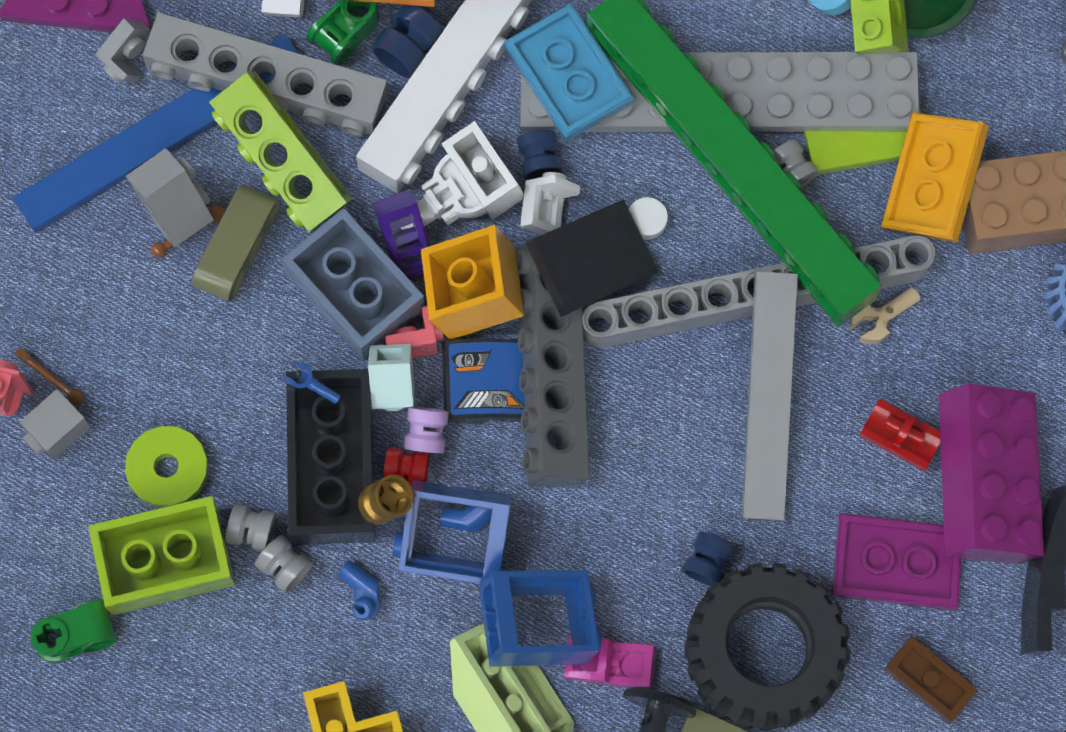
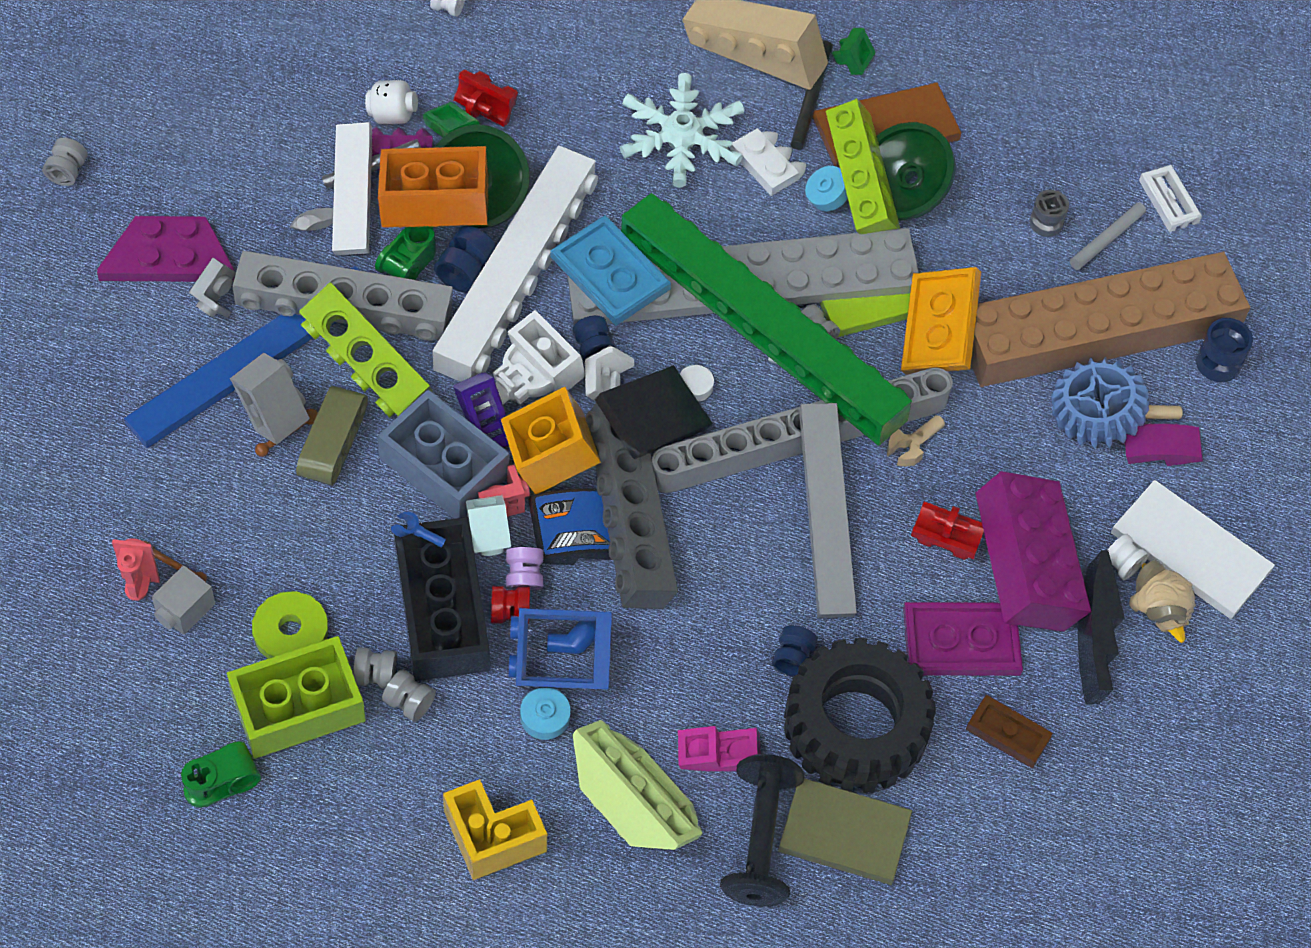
camera: 10 degrees left, 15 degrees down
(366, 590) = (487, 712): blue arm -> none
(390, 491) = (499, 618): pearl gold wheel -> none
(427, 601) = (545, 713): none -> medium azure wheel
(500, 623) = (618, 718): blue window -> none

